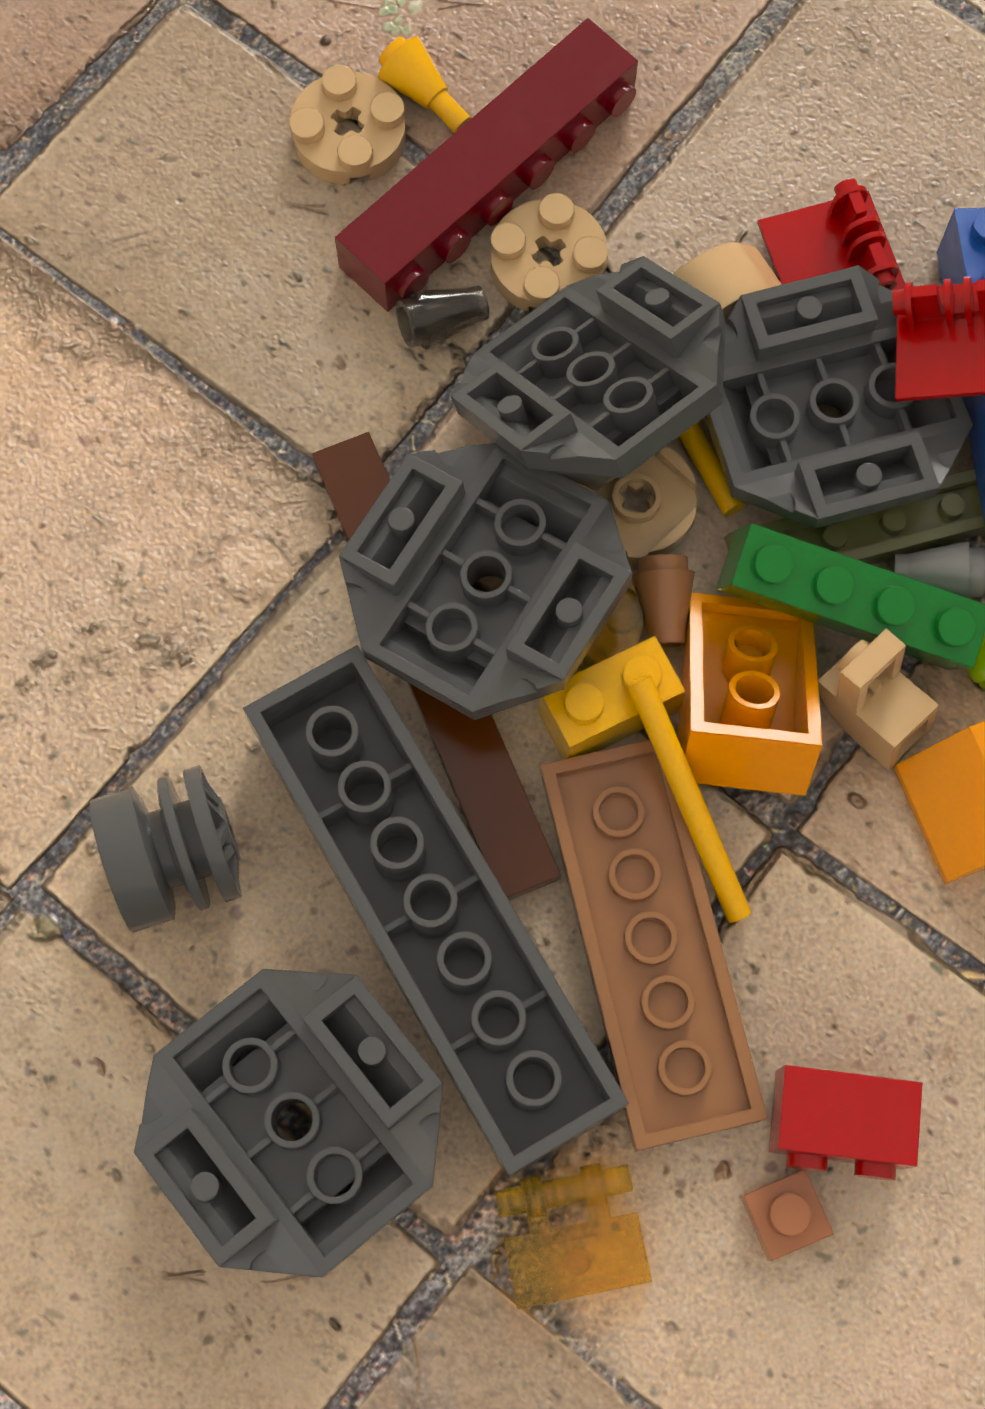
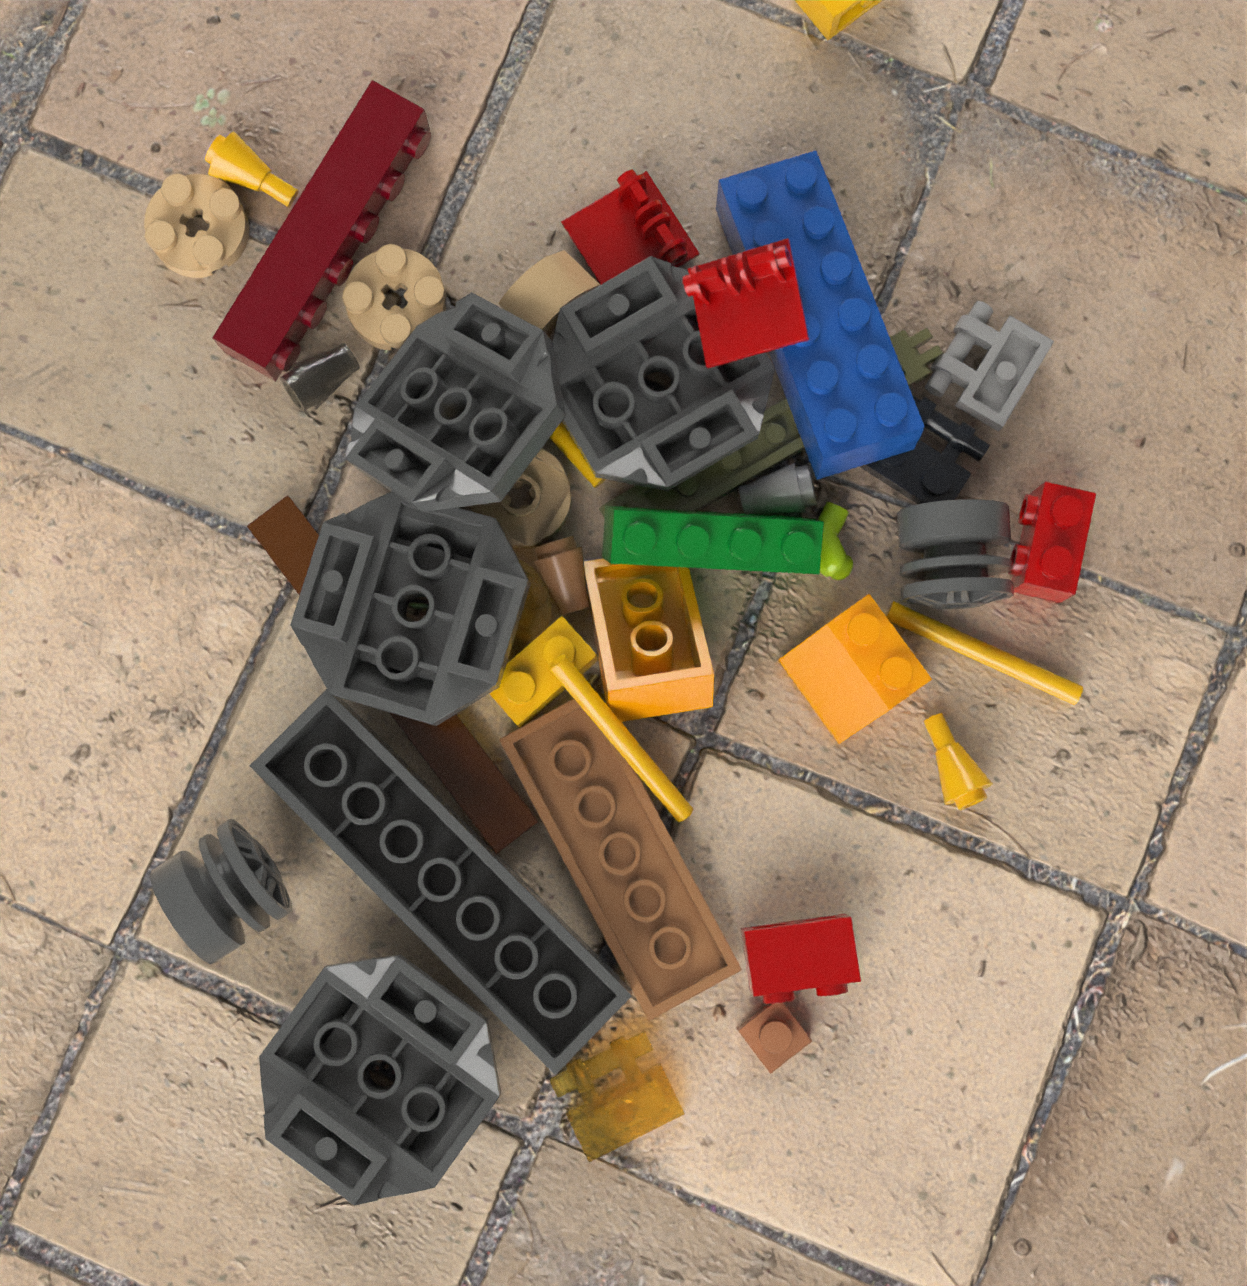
camera: 15 degrees left, 10 degrees up
(876, 700) = (751, 615): tan brick -> none

